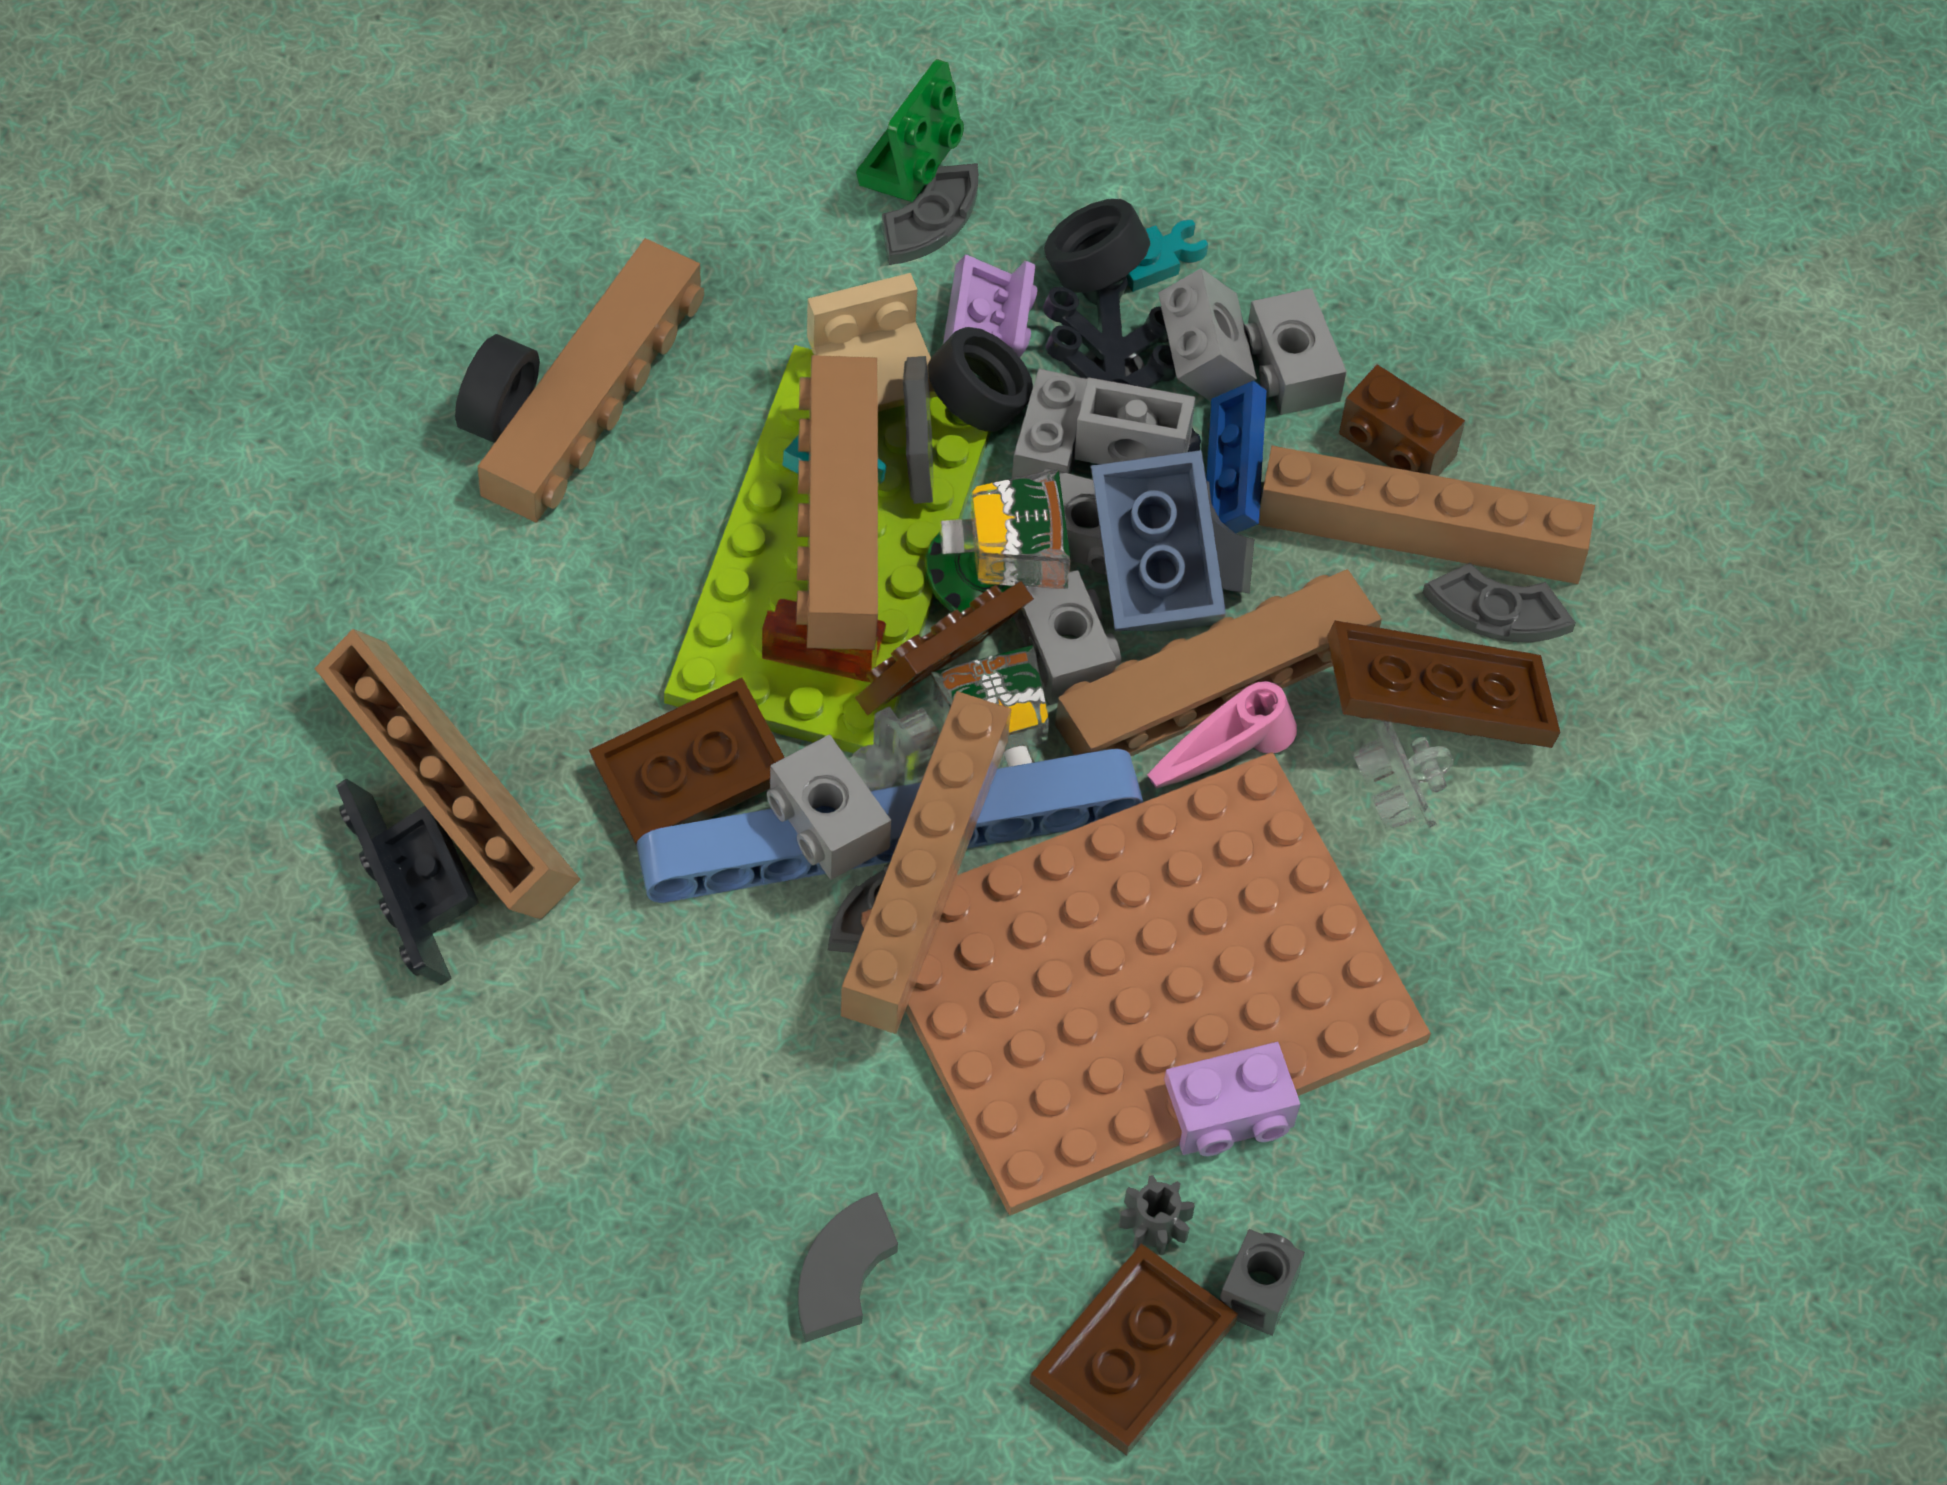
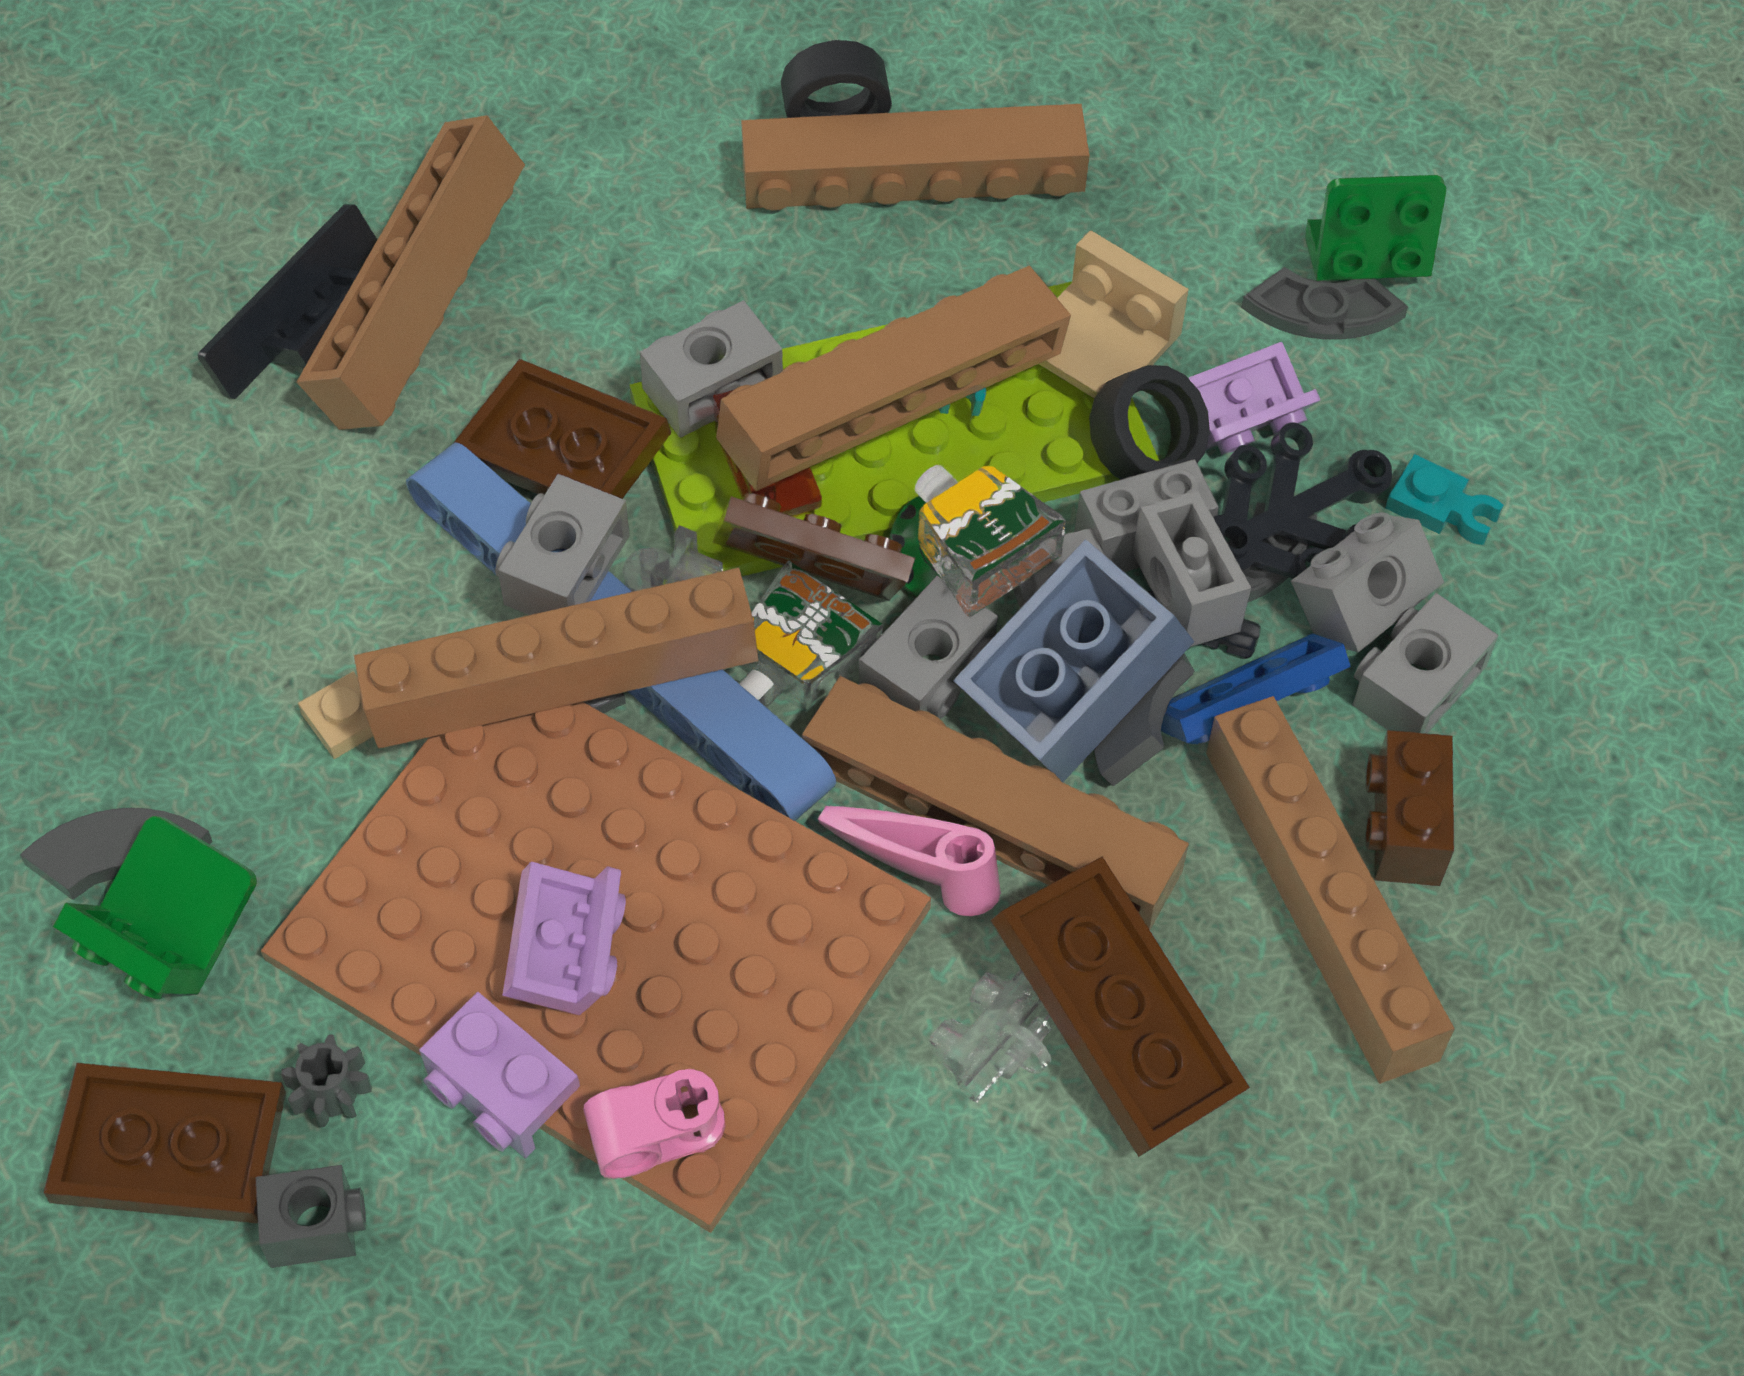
camera: 60 degrees right, 0 degrees up
(719, 592) = (706, 360): none -> light grey brick
(828, 1044) = (338, 715): none -> tan plate
(918, 429) = (1045, 404): dark grey tile -> none
(939, 1248) = (163, 911): none -> green bracket
(1097, 245) = (1388, 437): black tyre -> none
(1166, 984) = (564, 938): none -> lavender bracket
(1349, 1014) = (647, 1125): none -> bright pink piece
(1498, 608) = (1280, 1022): dark grey tile -> none

